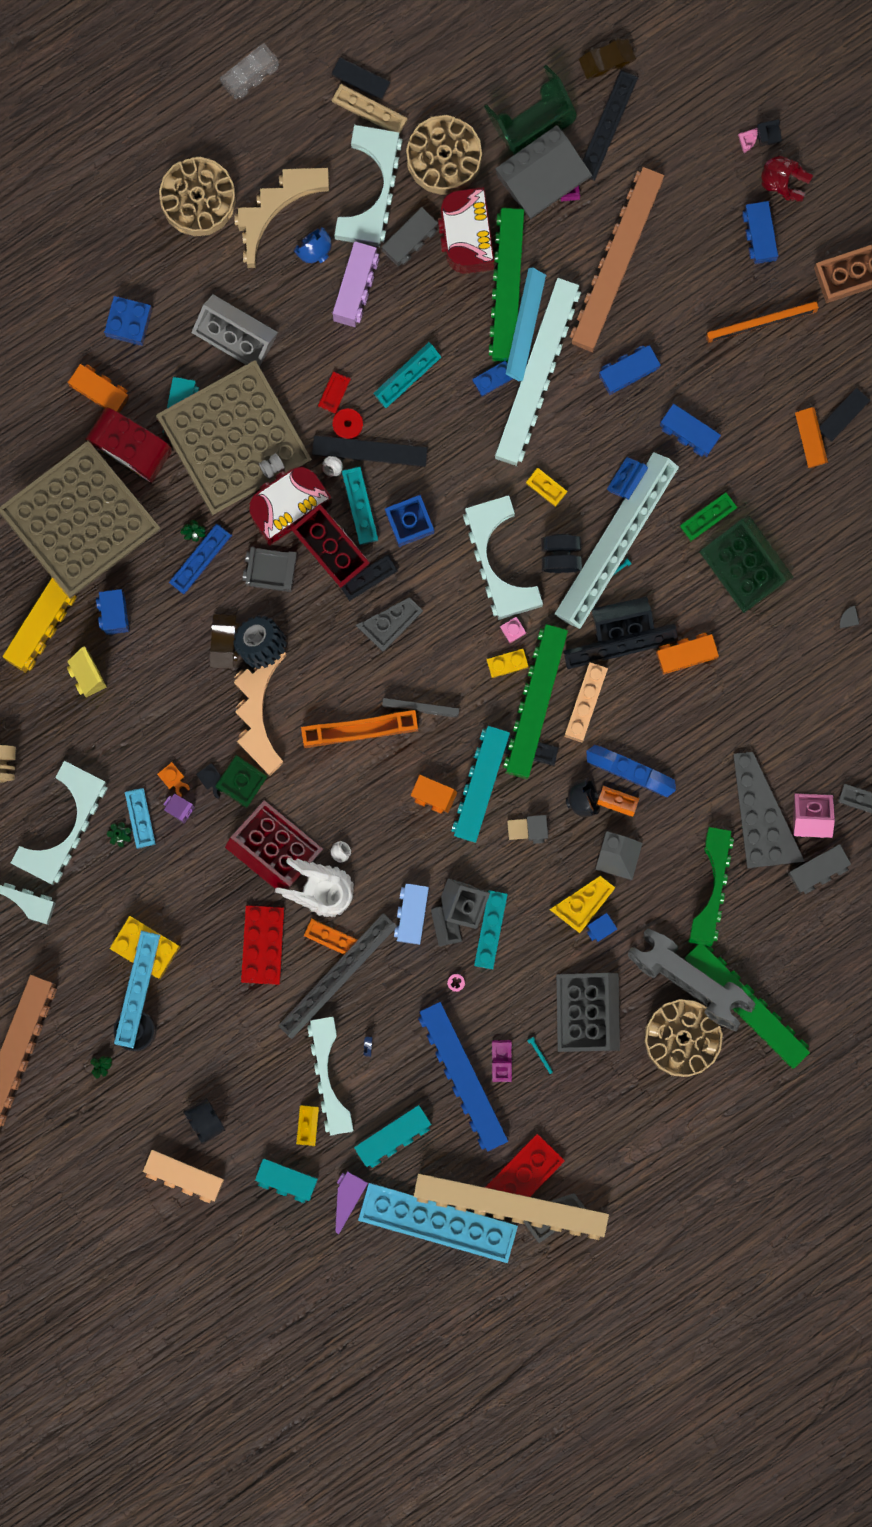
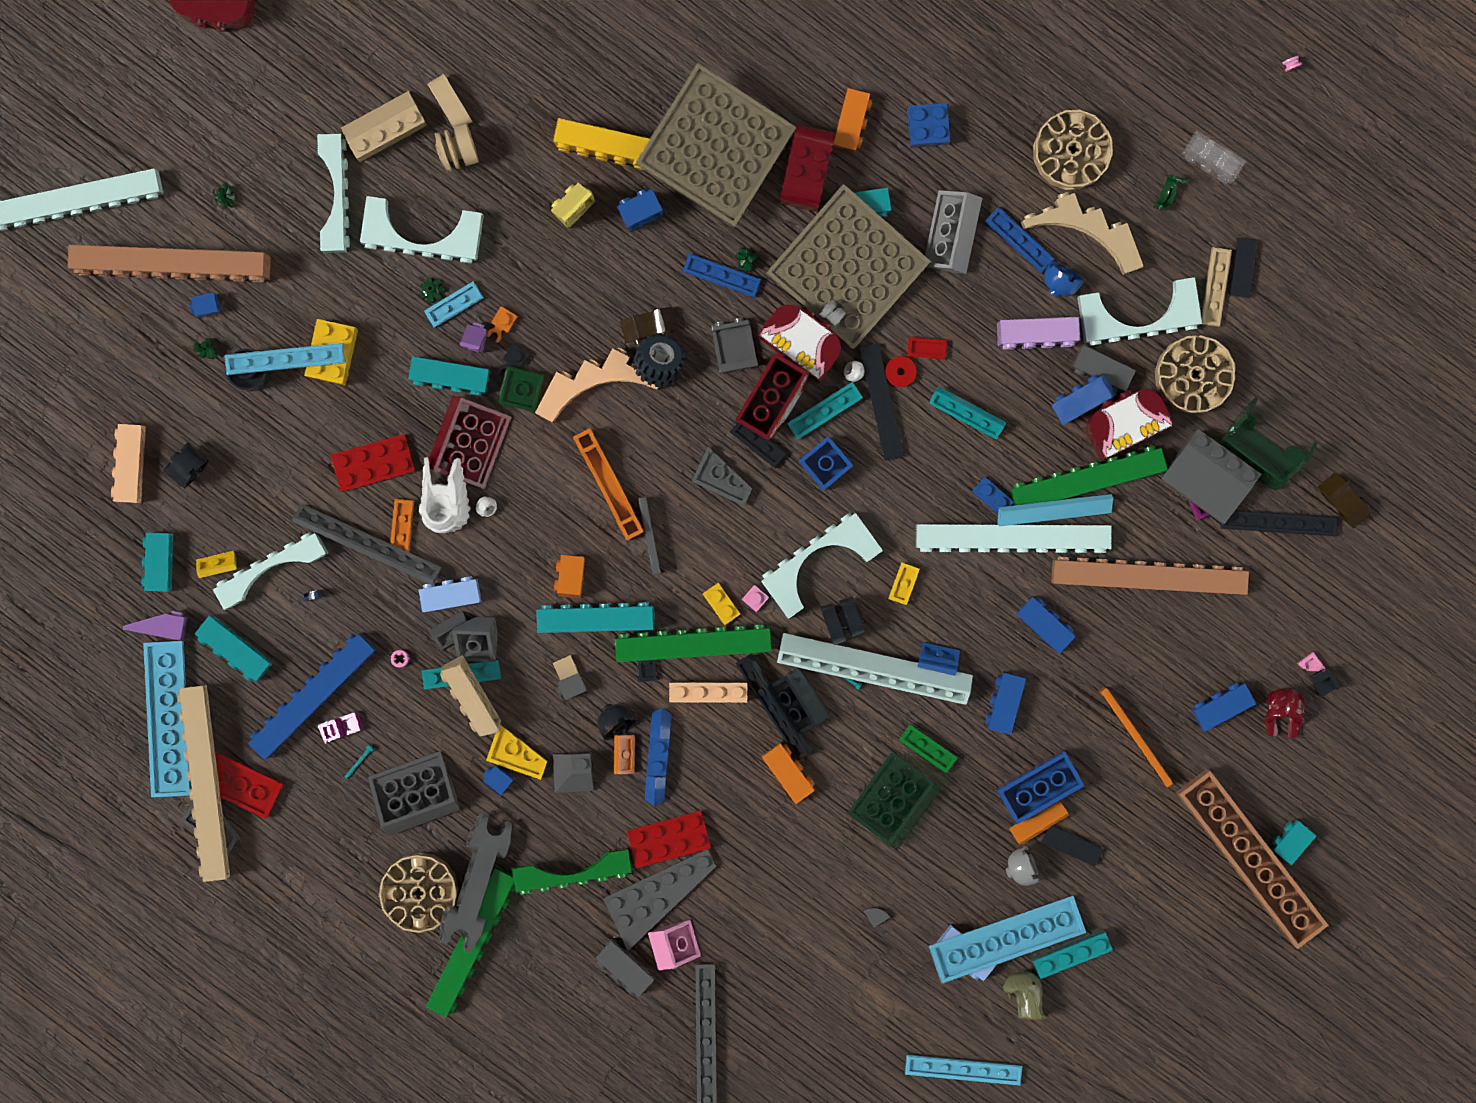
camera: 70 degrees right, 5 degrees up
(59, 1052) = (205, 305): none -> blue brick
(205, 844) = (449, 375): none -> teal brick
(260, 117) = (1171, 183): none -> dark green helmet
(263, 273) = (1019, 240): none -> blue tile
(431, 263) = (1083, 398): none -> blue brick
(515, 925) = (471, 696): none -> tan slope
(712, 787) = (668, 839): none -> red plate
(779, 425) = (1040, 787): none -> blue brick
(848, 466) = (1022, 867): none -> light grey cylinder

